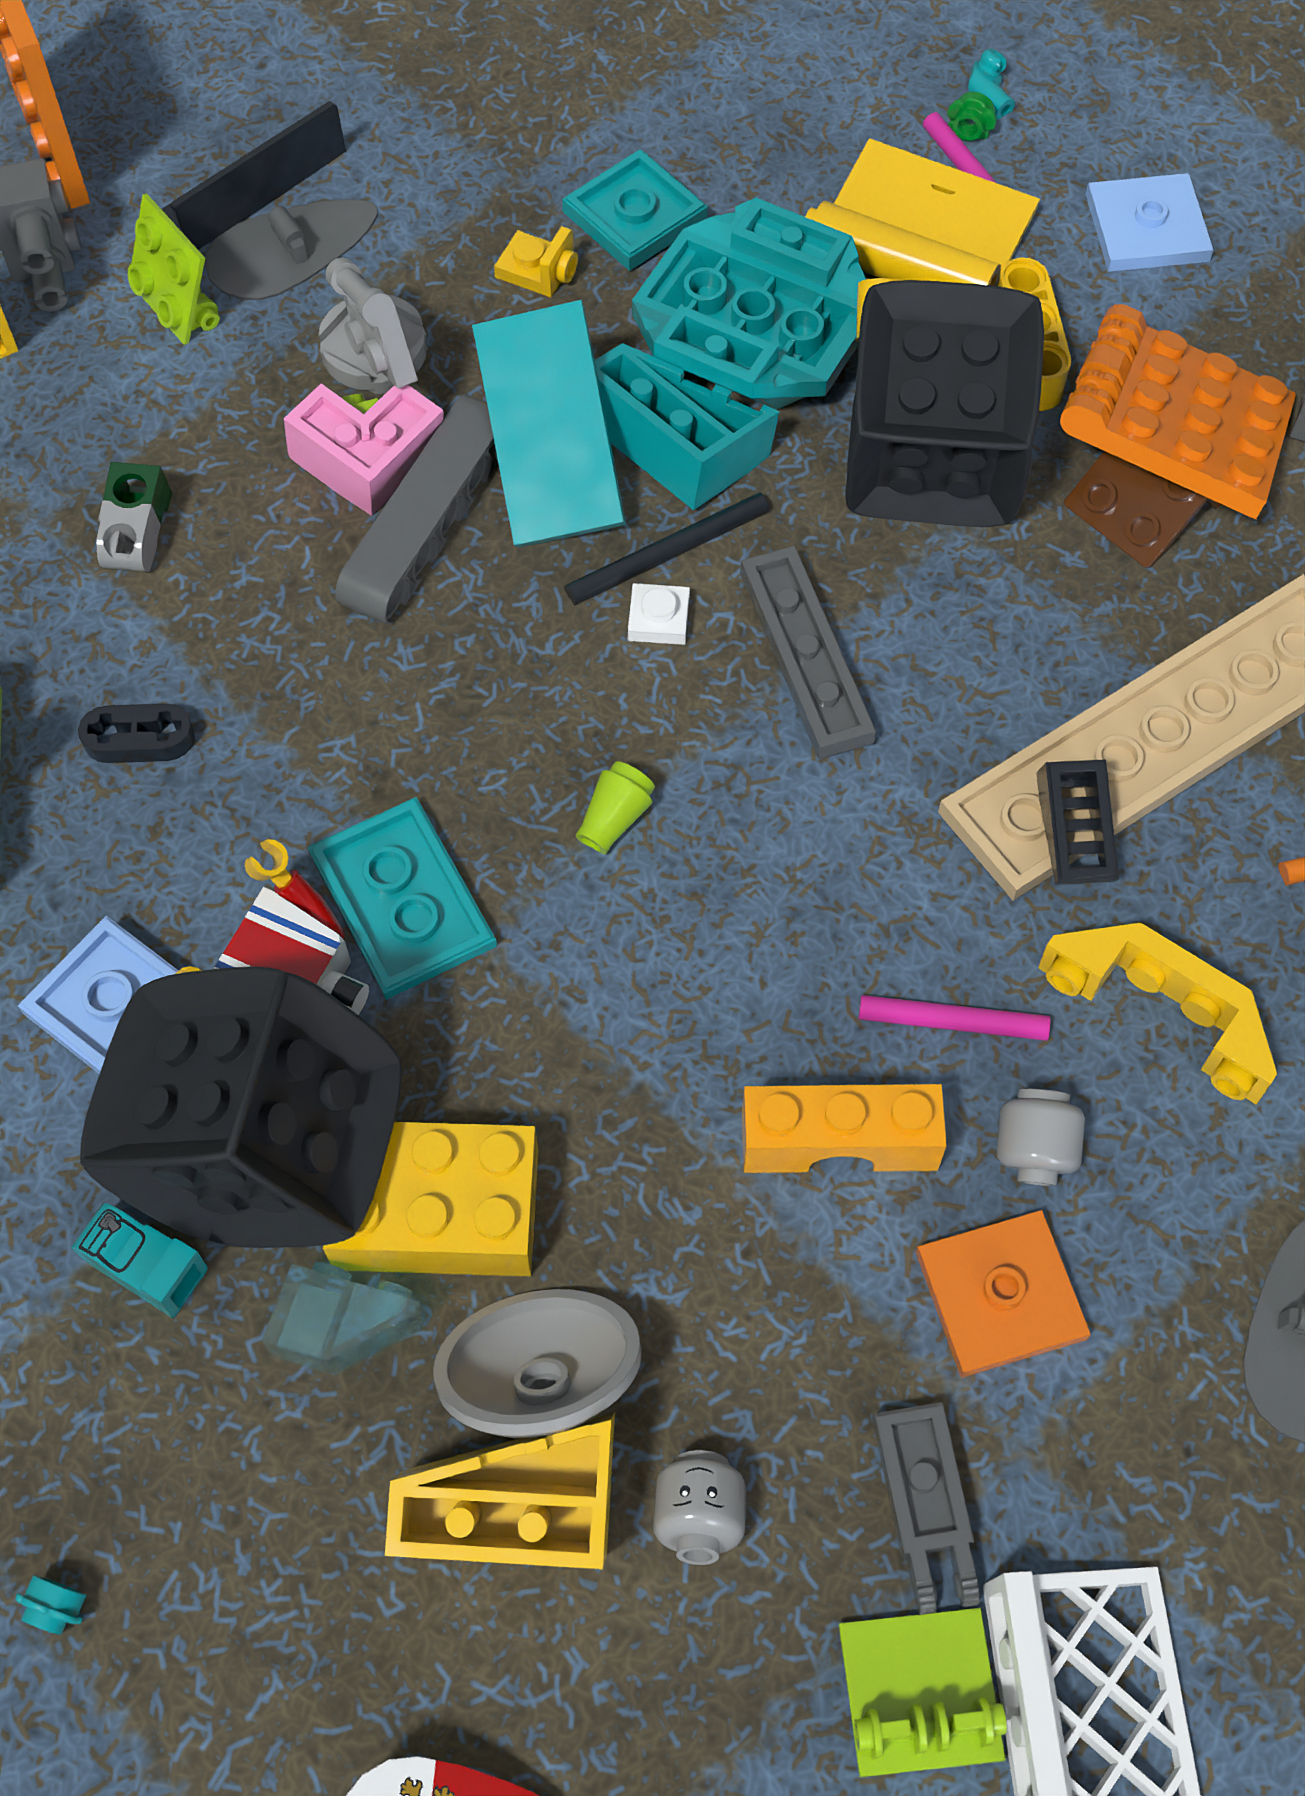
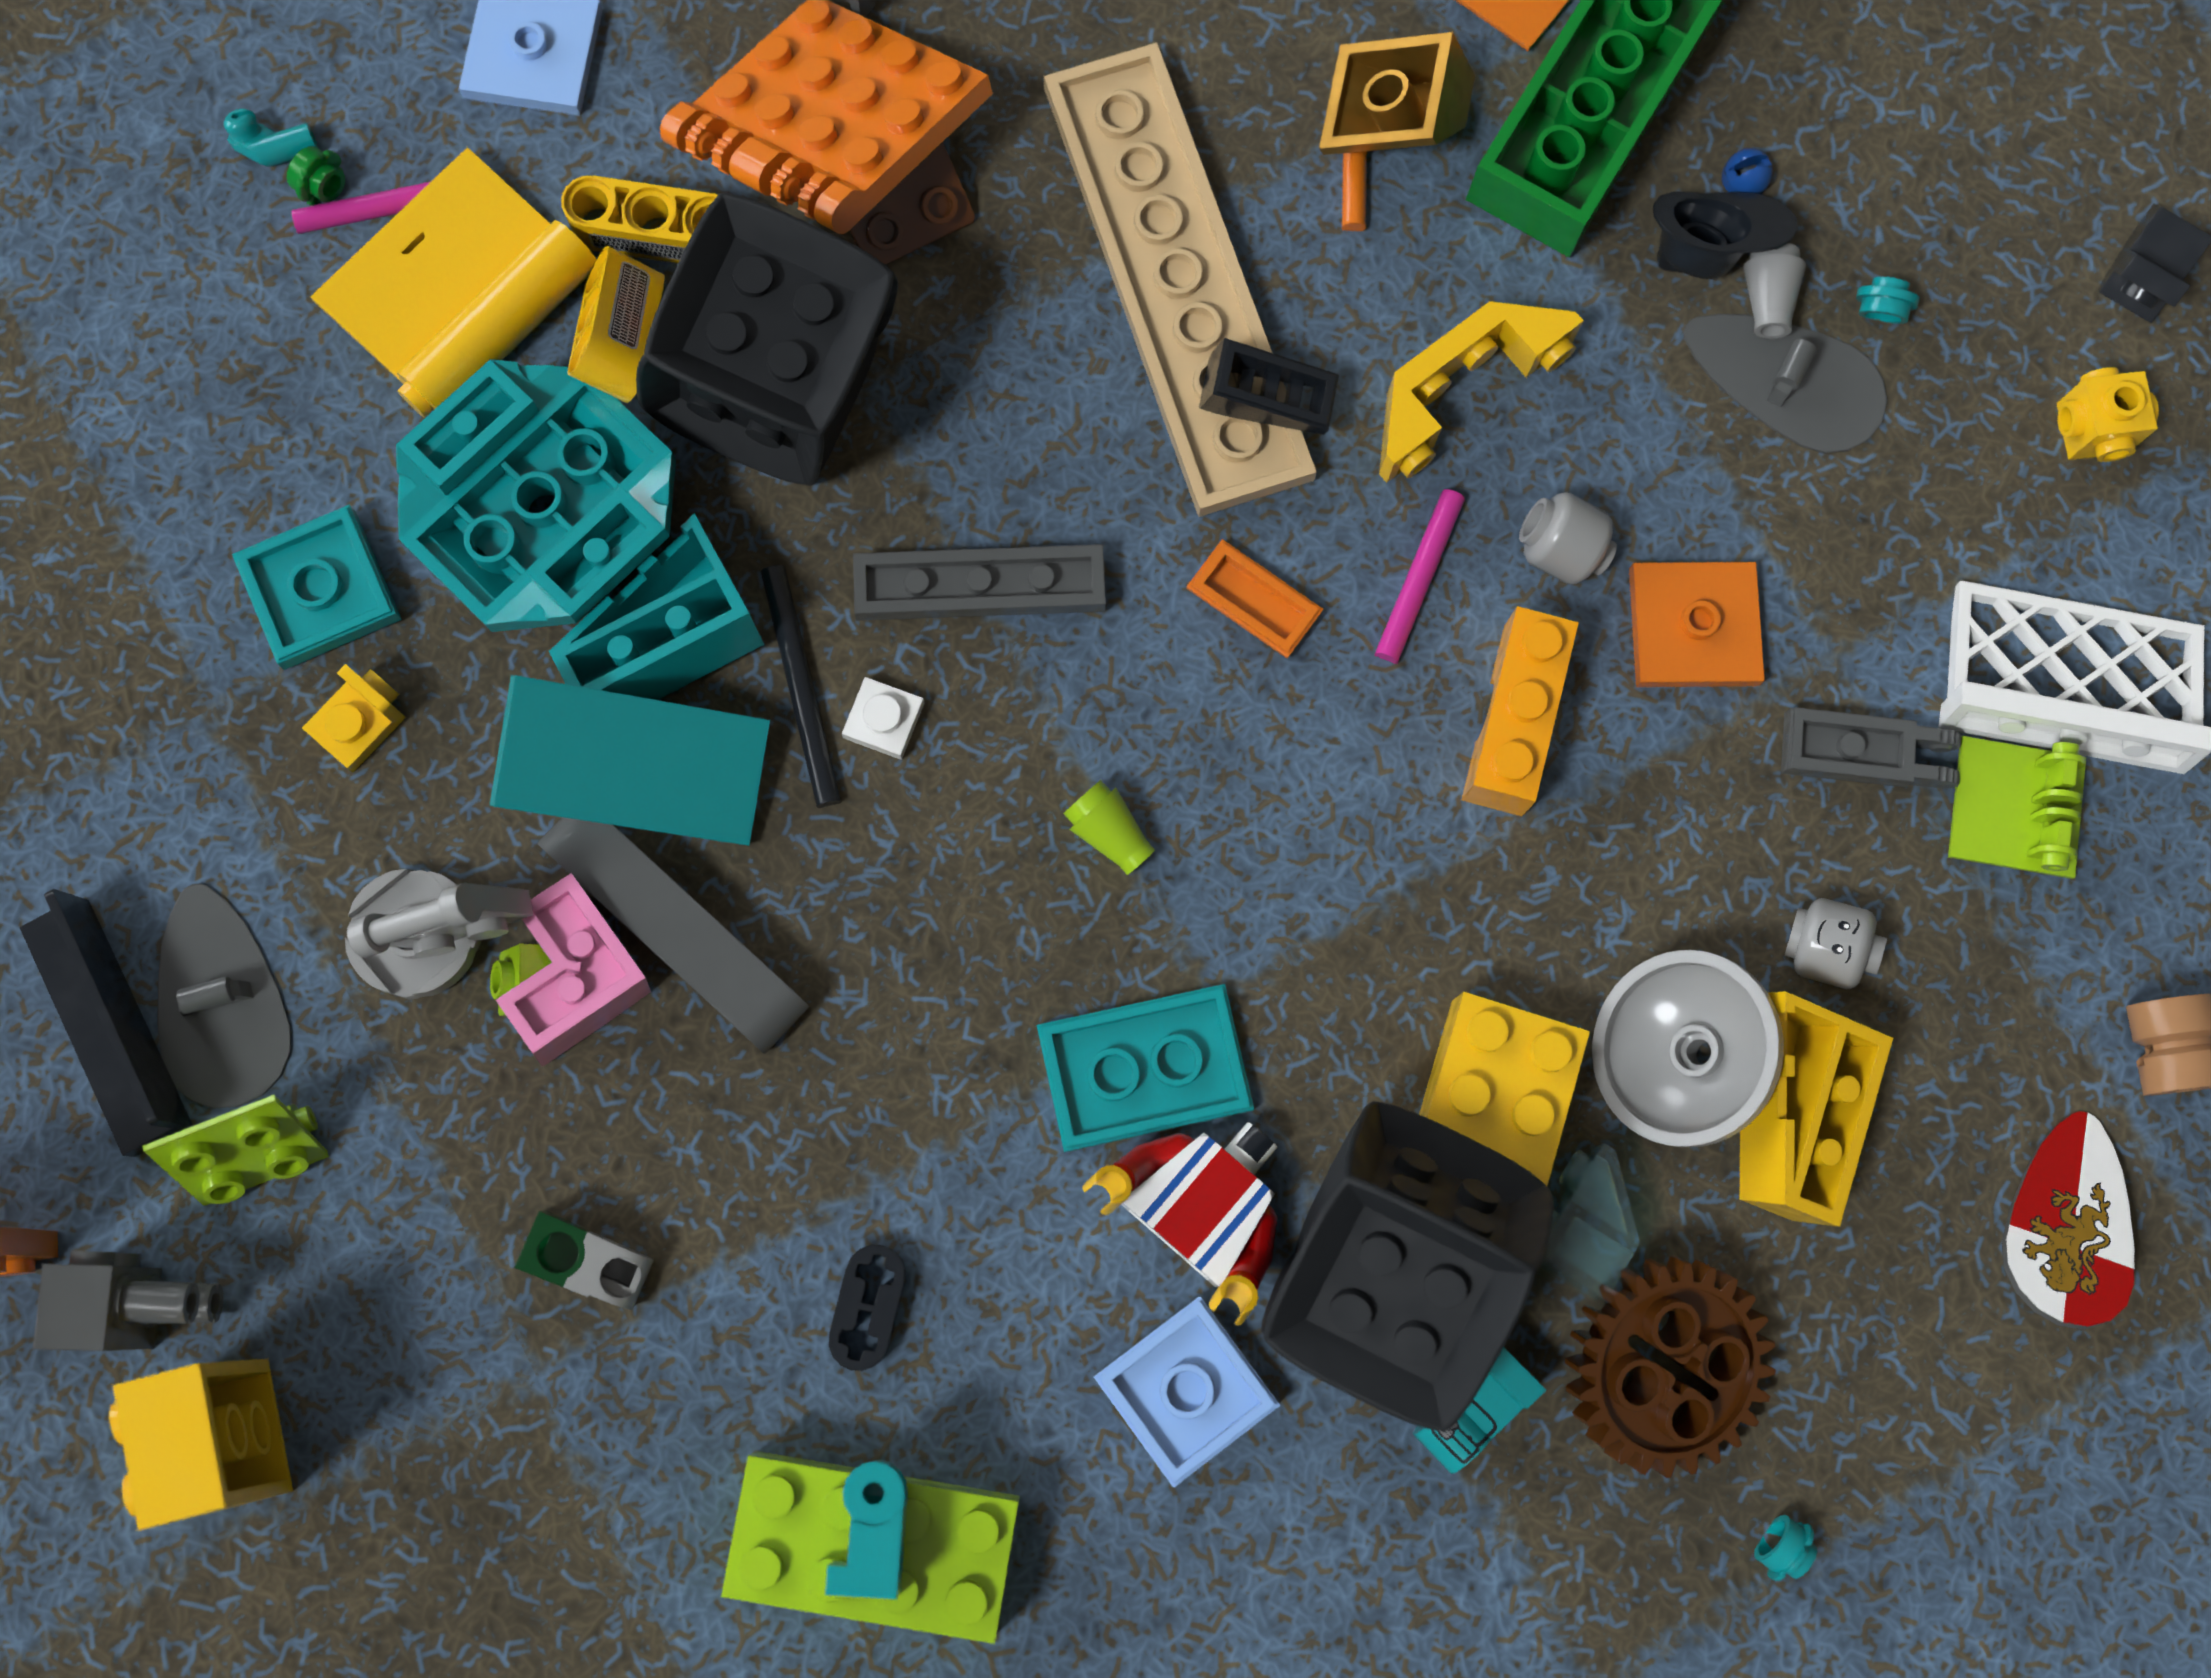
camera: 80 degrees left, 15 degrees up
(265, 1448) = (1703, 1314): none -> reddish brown gear
(875, 876) = (1254, 598): none -> orange tile

